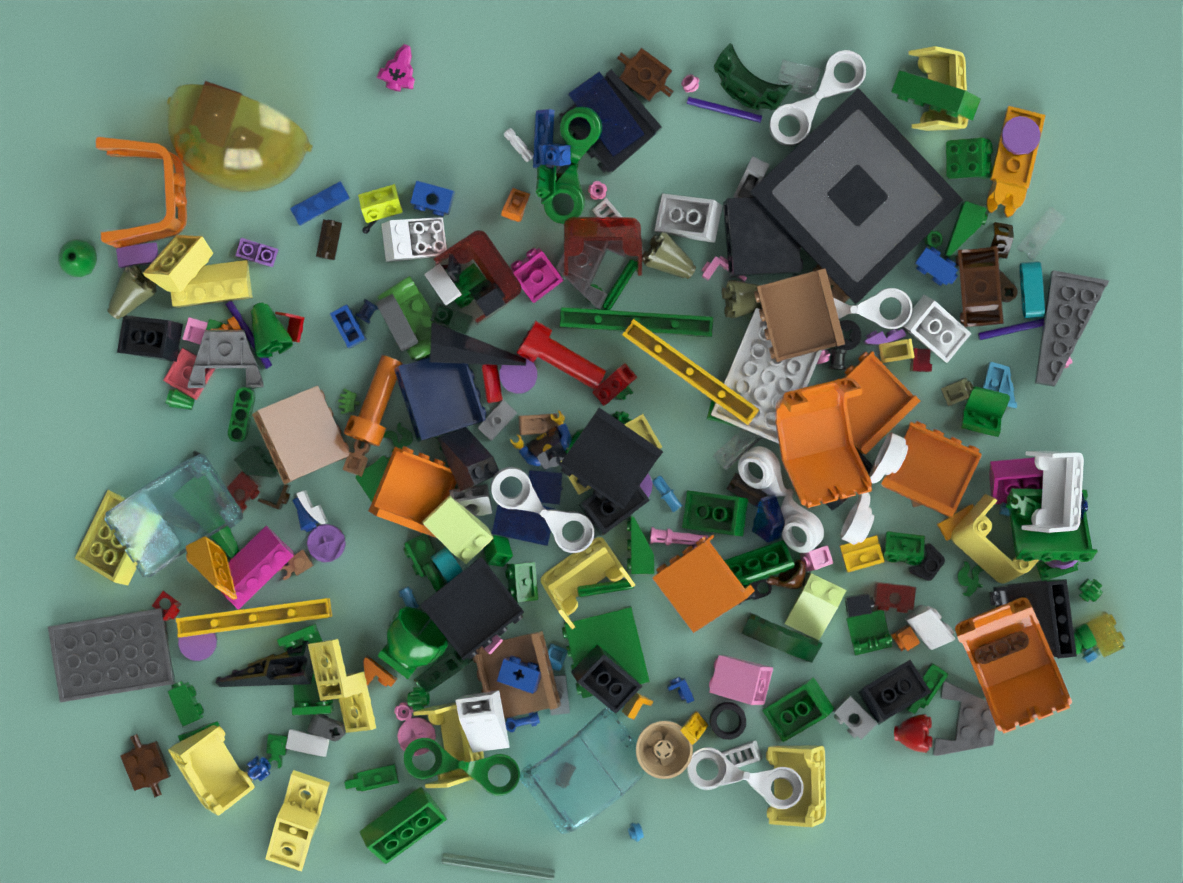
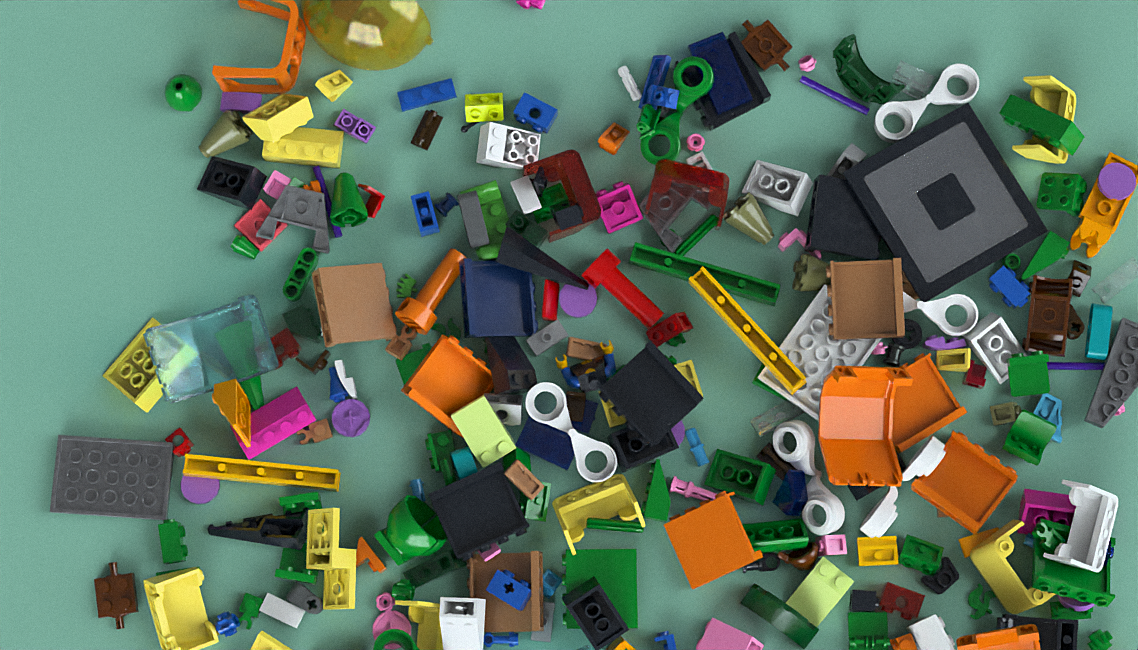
camera: 15 degrees right, 10 degrees down
(225, 215) = (333, 85): none -> light yellow slope
(508, 567) = (523, 479): none -> medium nougat plate
(541, 482) = (576, 405): none -> dark brown bracket
(972, 349) = (1028, 374): none -> green bracket

